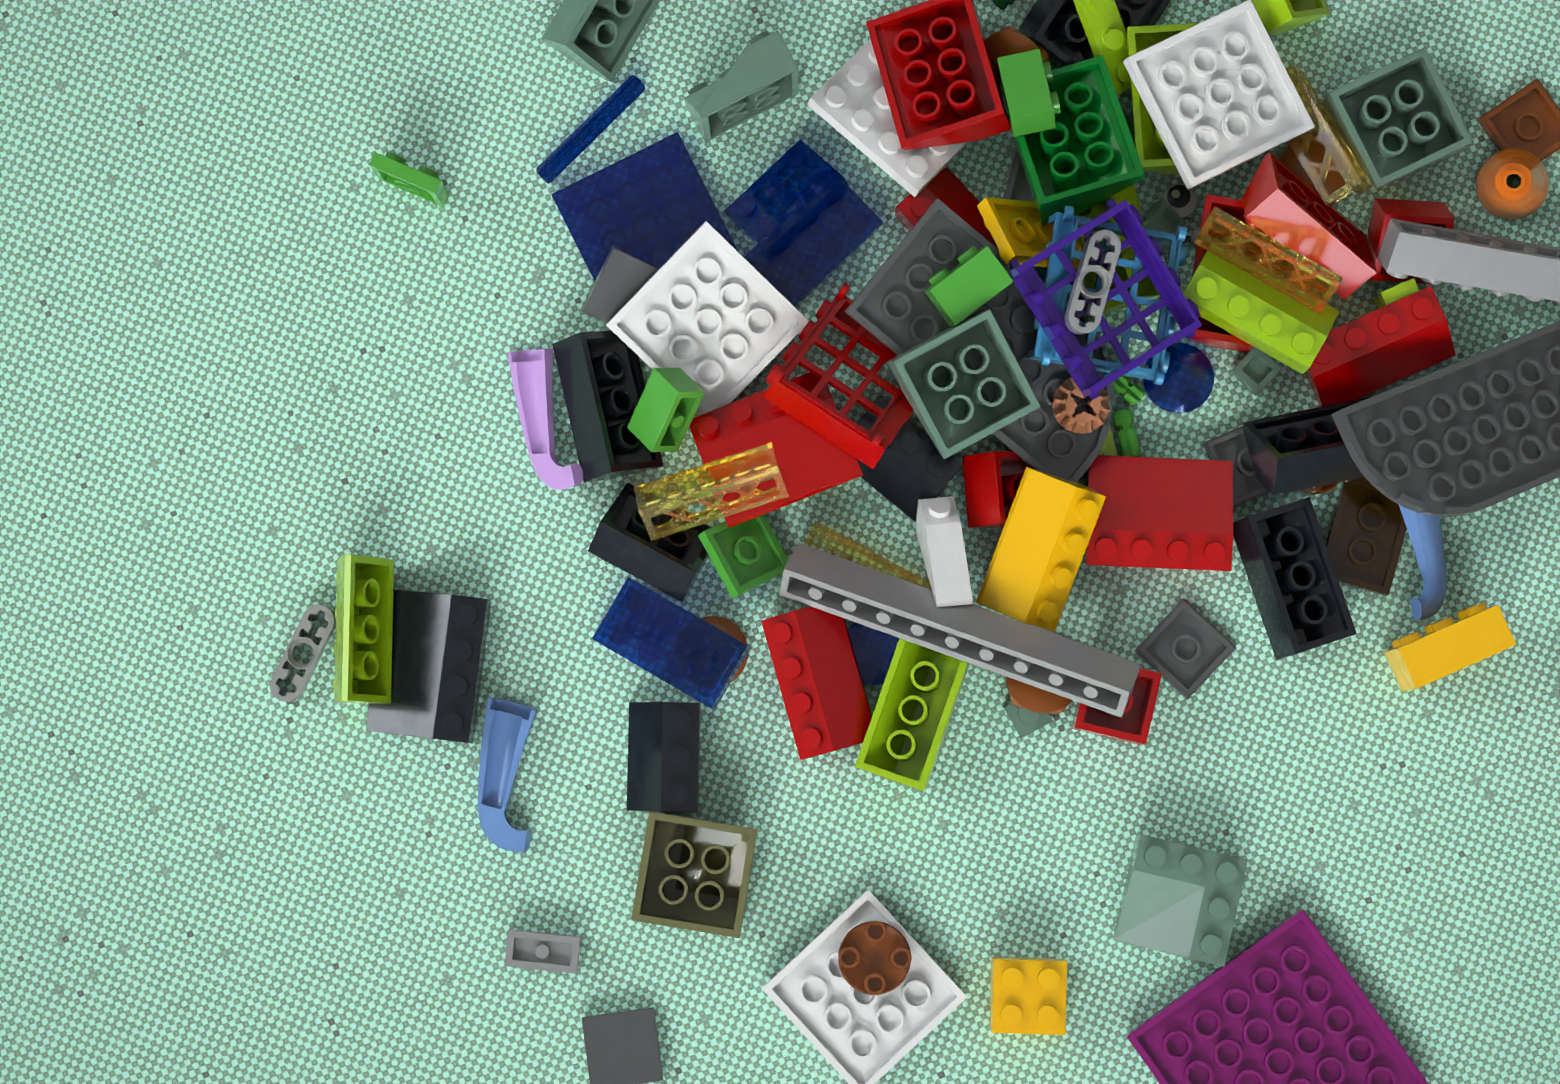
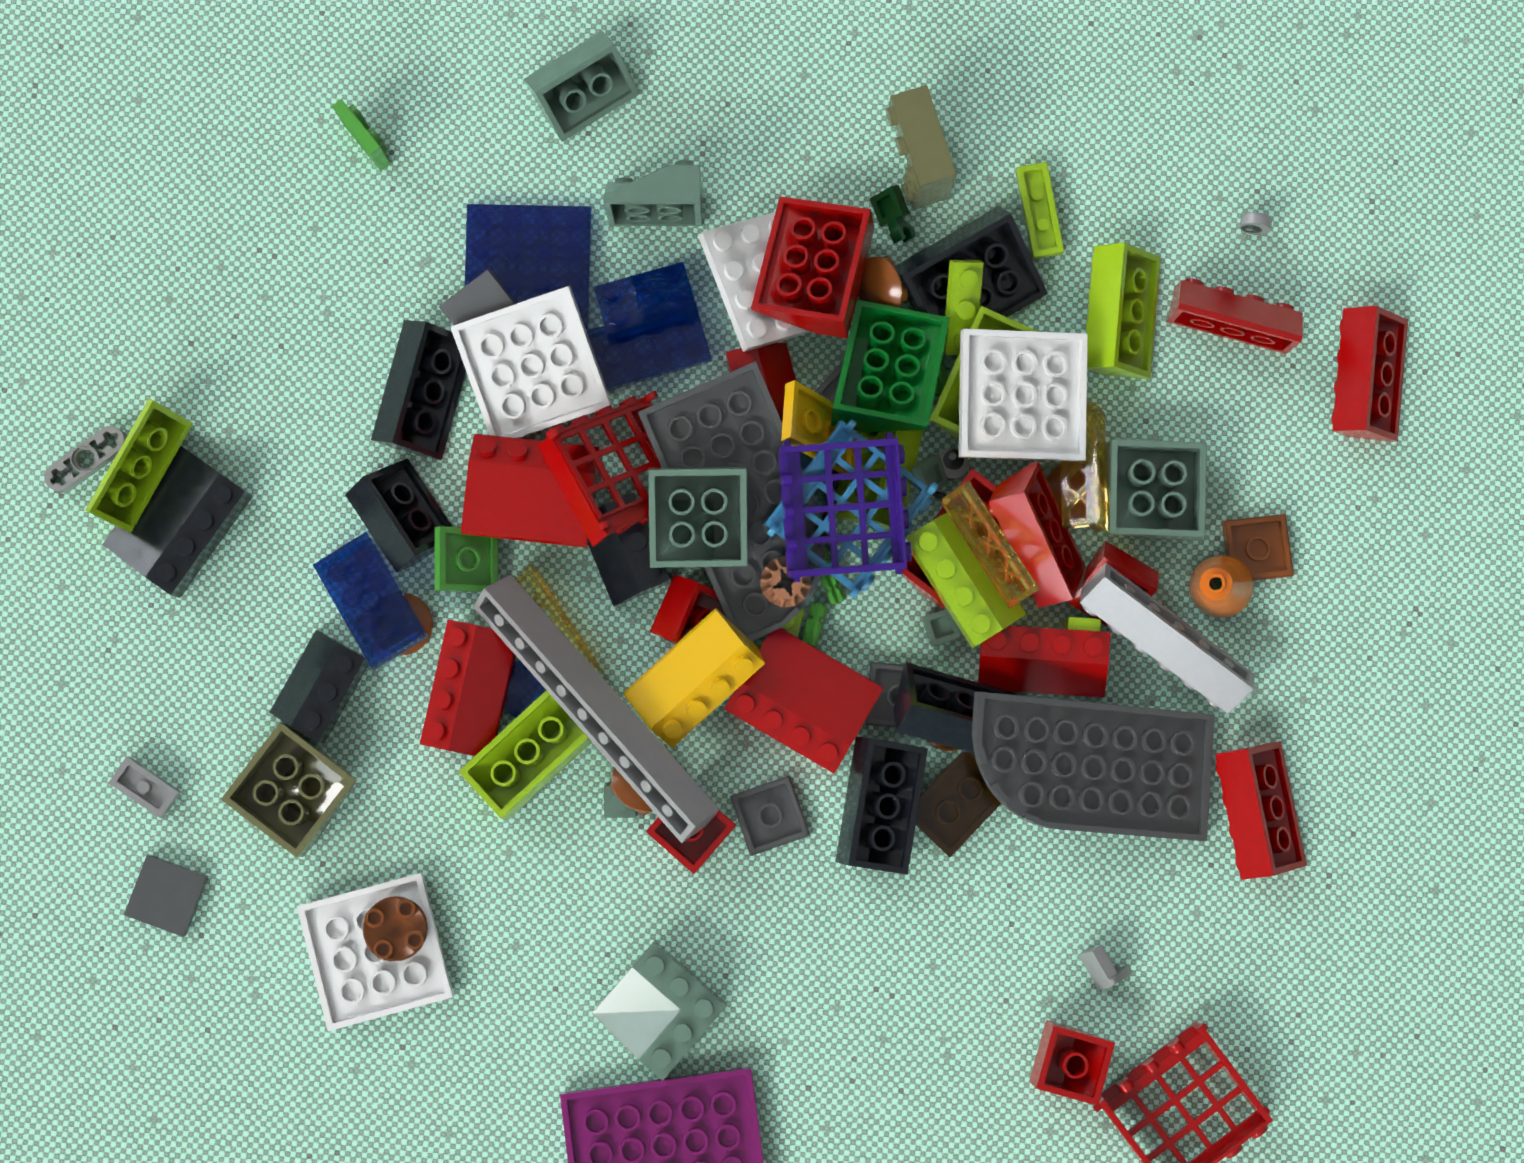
camera: 20 degrees right, 0 degrees up
(501, 749) = (199, 611): medium blue animal -> none
(533, 393) = (372, 346): lavender animal -> none
(590, 129) = (525, 169): clear blue axle -> none
(665, 409) = (461, 416): bright green brick -> none
(707, 486) = (458, 492): clear yellow fence -> none
(943, 551) = (617, 640): white slope -> none
(967, 285) = (742, 441): bright green brick -> none
(1027, 92) = (872, 315): bright green brick -> none
(1028, 995) = (499, 1021): yellow brick -> none
(1093, 310) = (828, 512): light grey beam -> none
(1185, 383) = (881, 605): clear blue dish -> none
(1429, 551) = (1001, 839): medium blue animal -> none
(1449, 646) = (974, 923): yellow brick -> none

